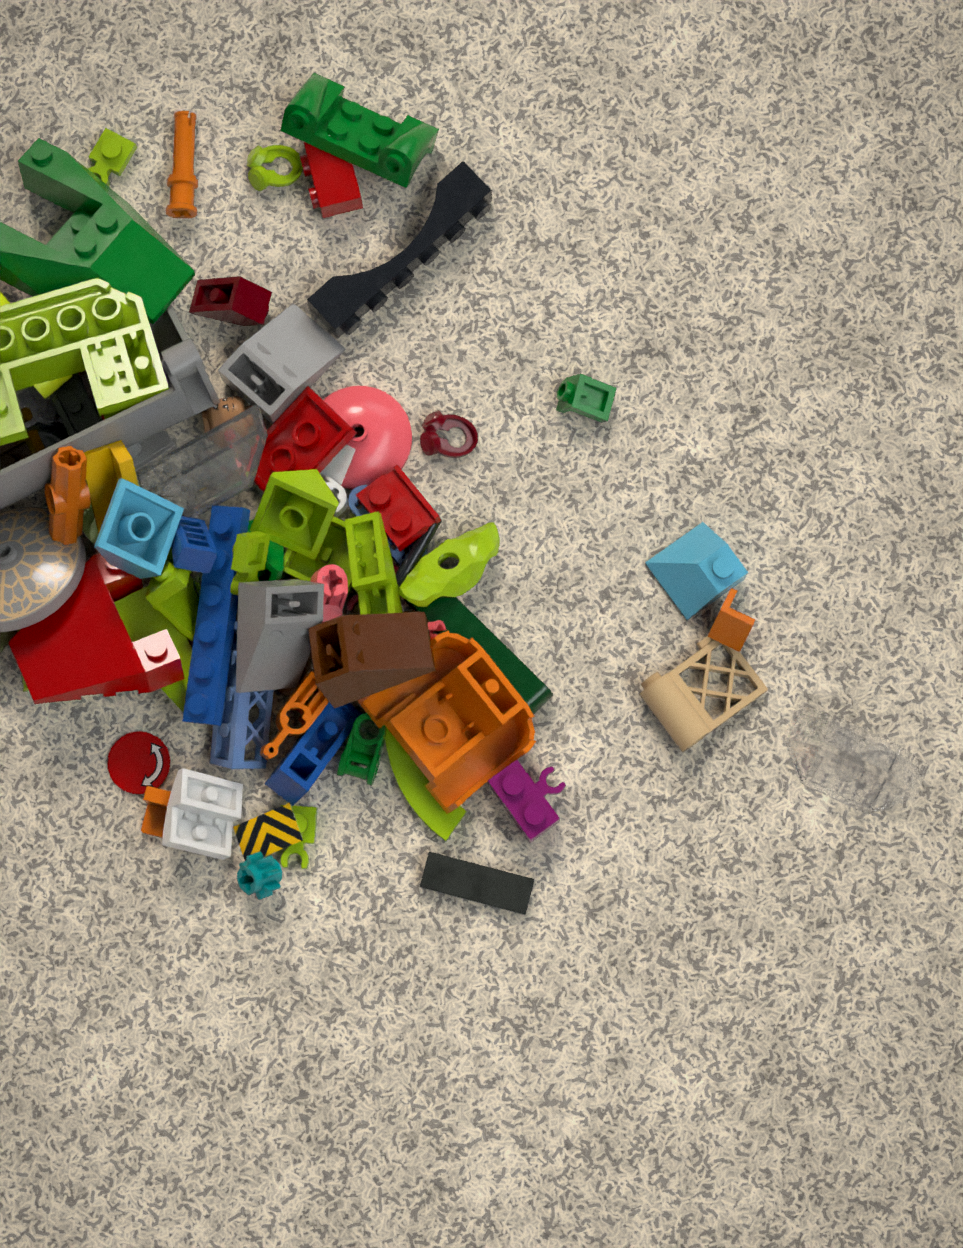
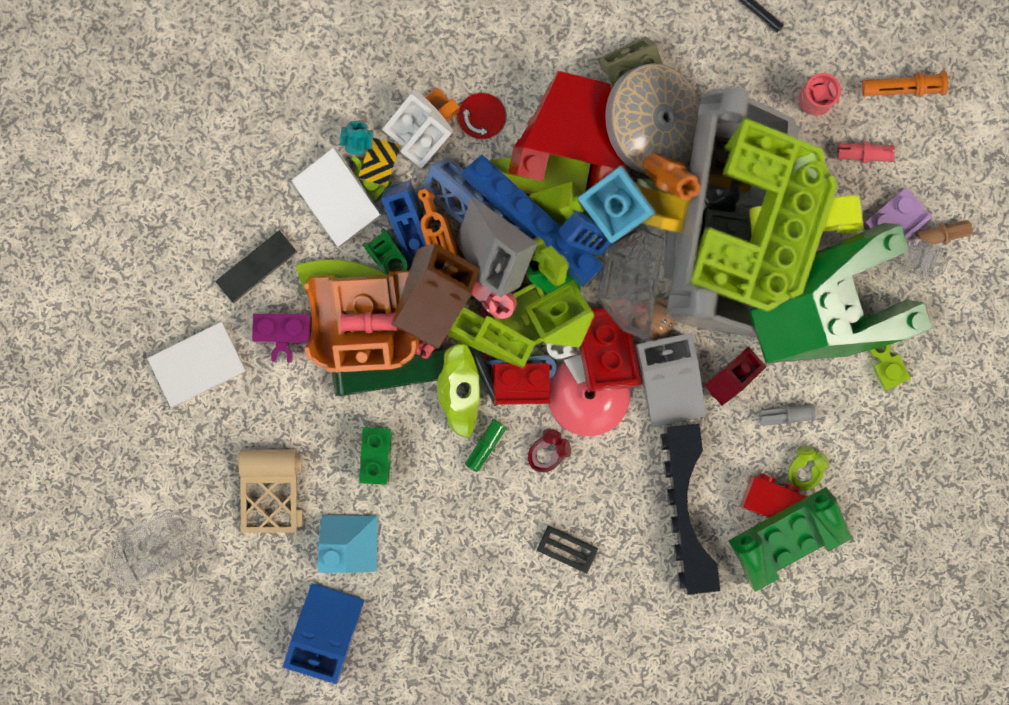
camera: 120 degrees right, 5 degrees up
(182, 180) = (839, 402): orange pin -> none
(232, 223) = (787, 415): none -> light grey axle
(340, 850) = (336, 197): none -> white tile
(449, 707) = (366, 322): none -> coral pin
(489, 503) = (485, 445): none -> green axle
(540, 374) = (545, 539): none -> pearl dark grey tile
(584, 605) = (375, 456): none -> green brick
(586, 397) = (508, 556): green bracket -> none
(628, 868) = (196, 364): none -> white tile
(731, 625) = (295, 539): orange panel -> none
(806, 524) = (323, 634): none -> blue slope

